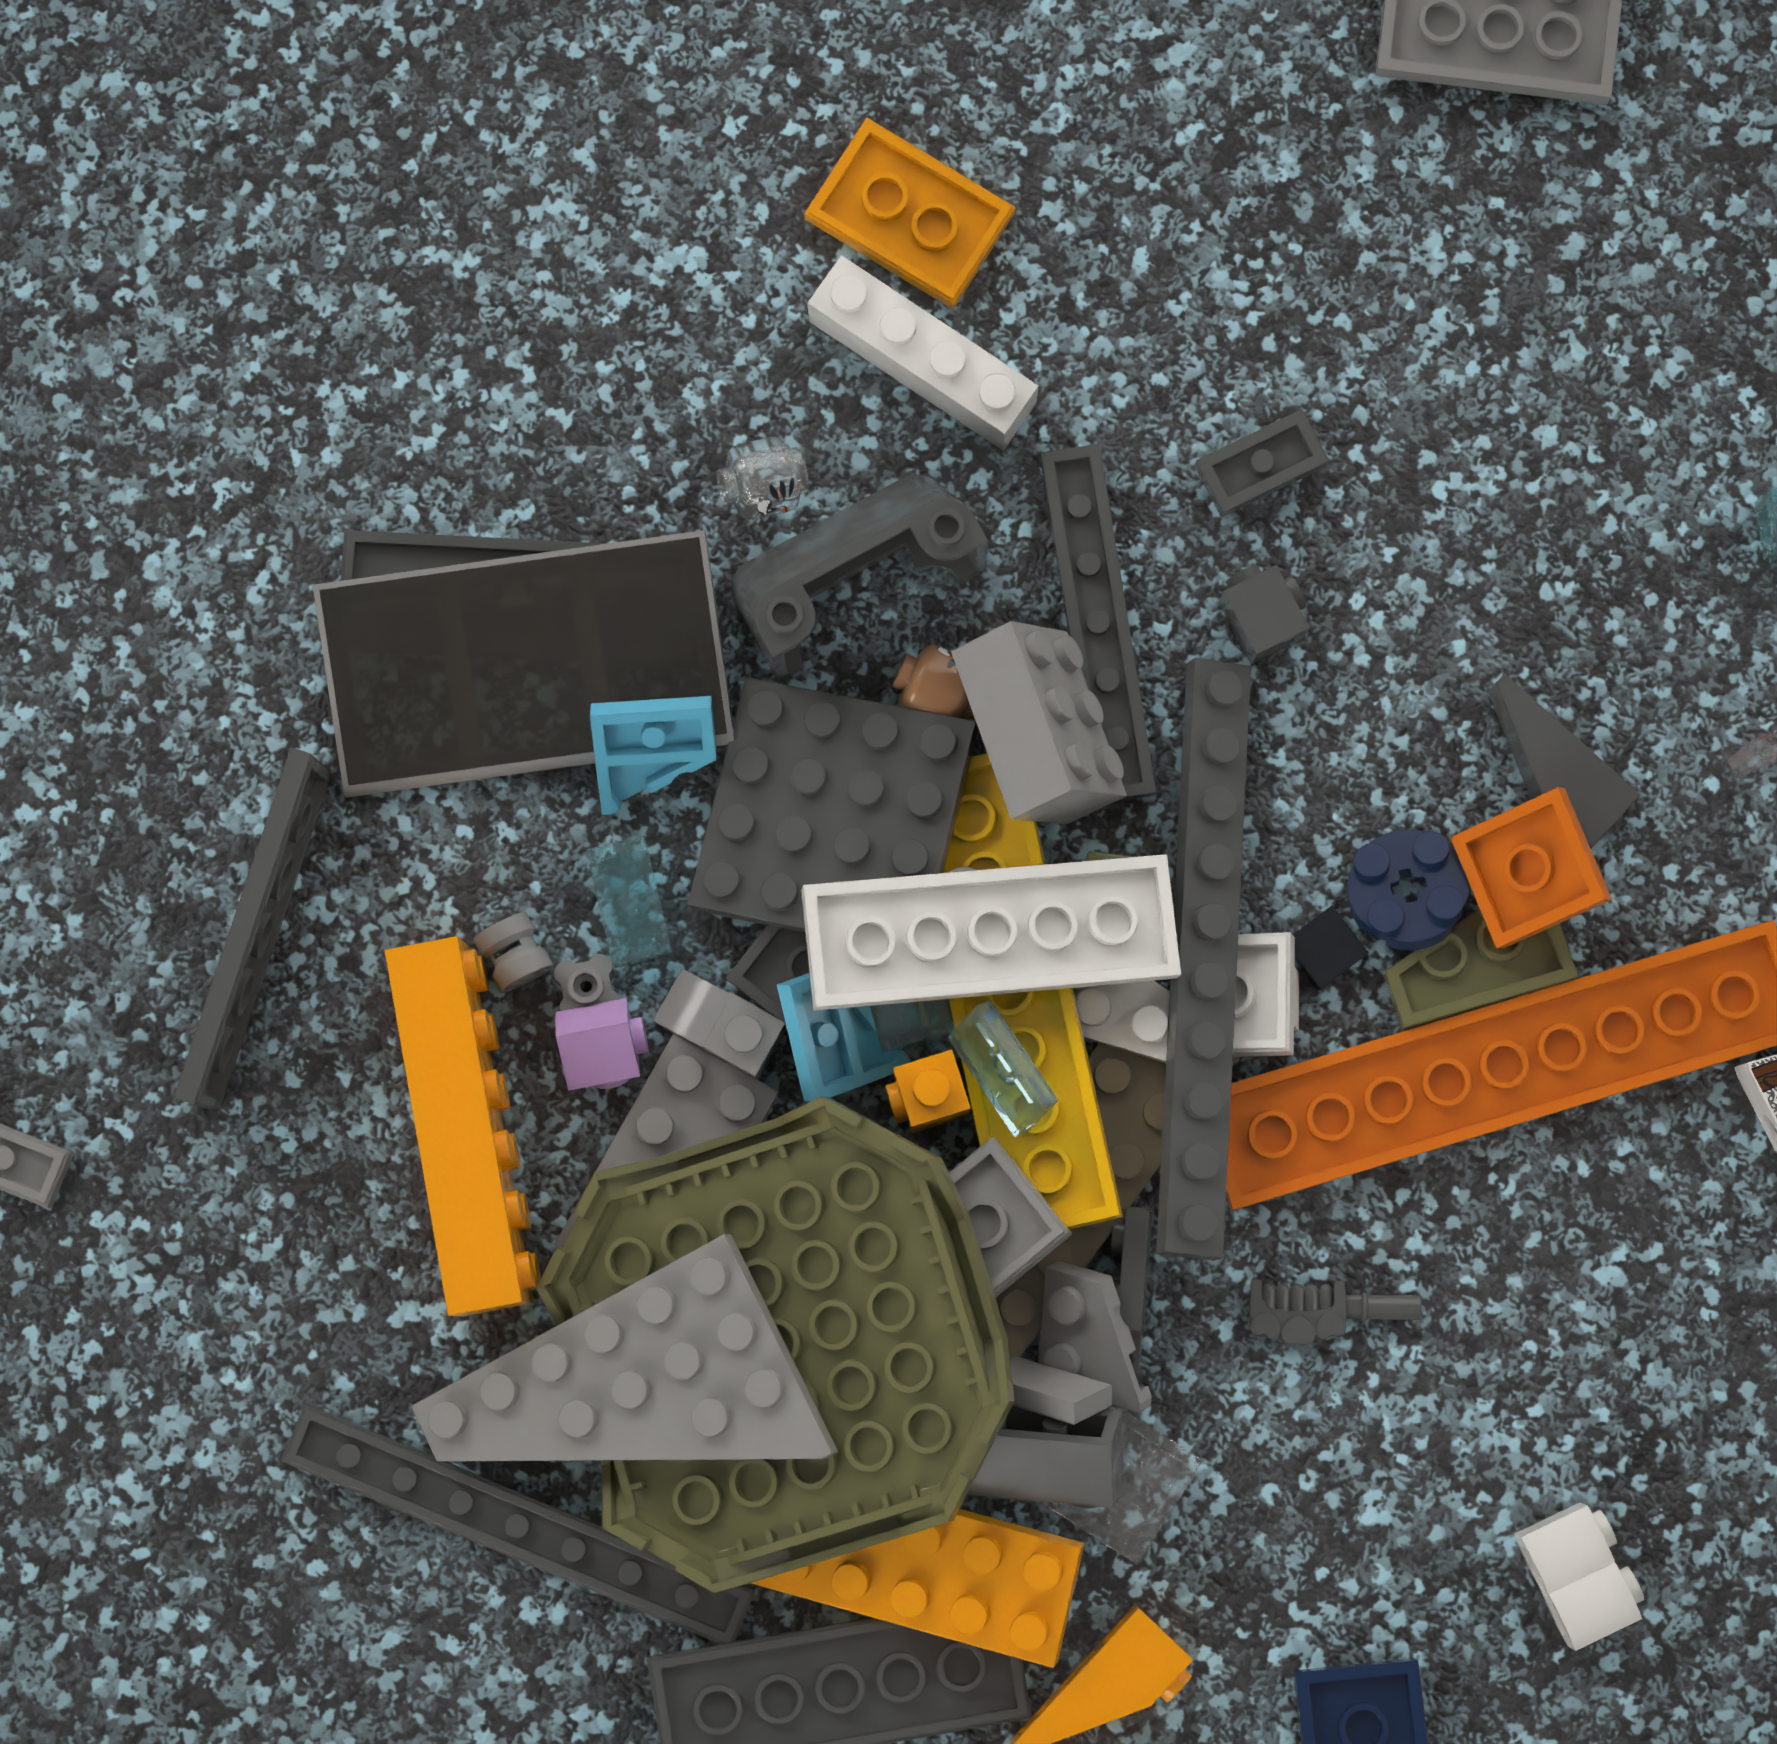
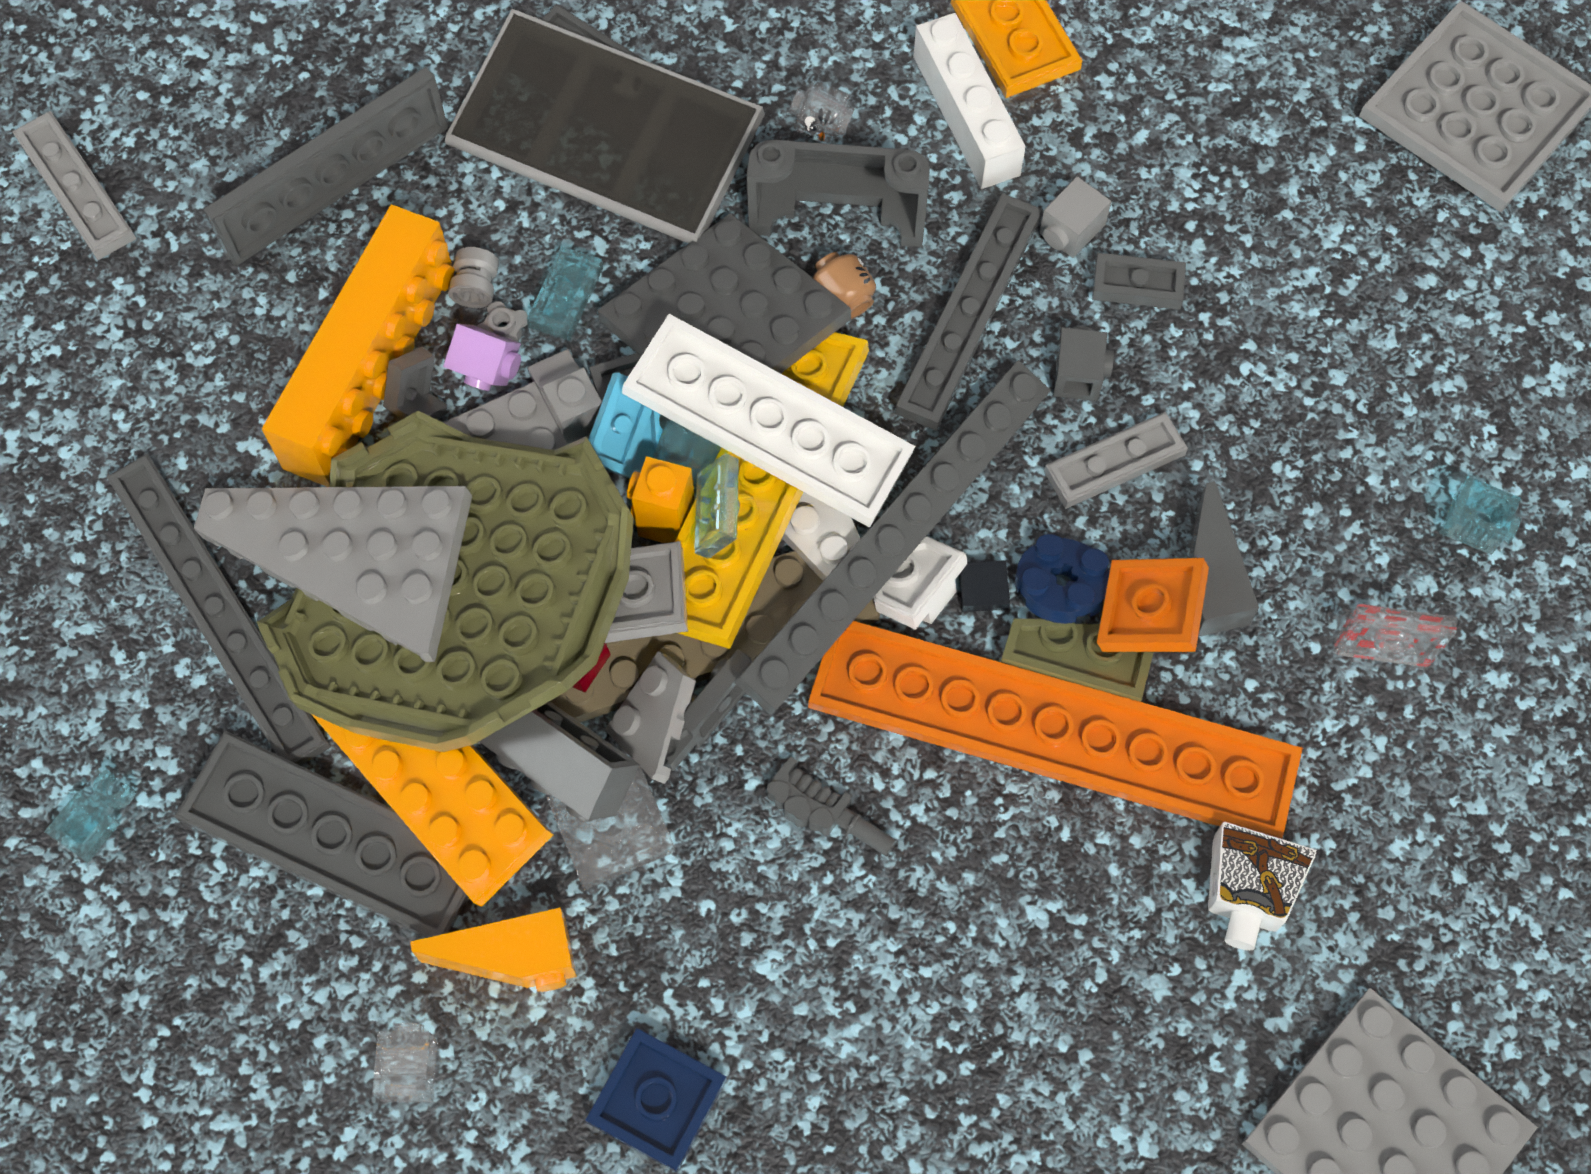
camera: 30 degrees right, 15 degrees down
(548, 1143) = (409, 385): none -> dark grey bracket
(649, 744) = (640, 206): medium azure wing -> none
(1039, 723) = (888, 328): light grey brick -> none
(1057, 1392) = (600, 724): light grey tile -> none
(1141, 430) = (1074, 217): none -> light grey brick
(1370, 702) = (1115, 460): none -> light grey tile
(1579, 1575) = (879, 1096): white brick -> none

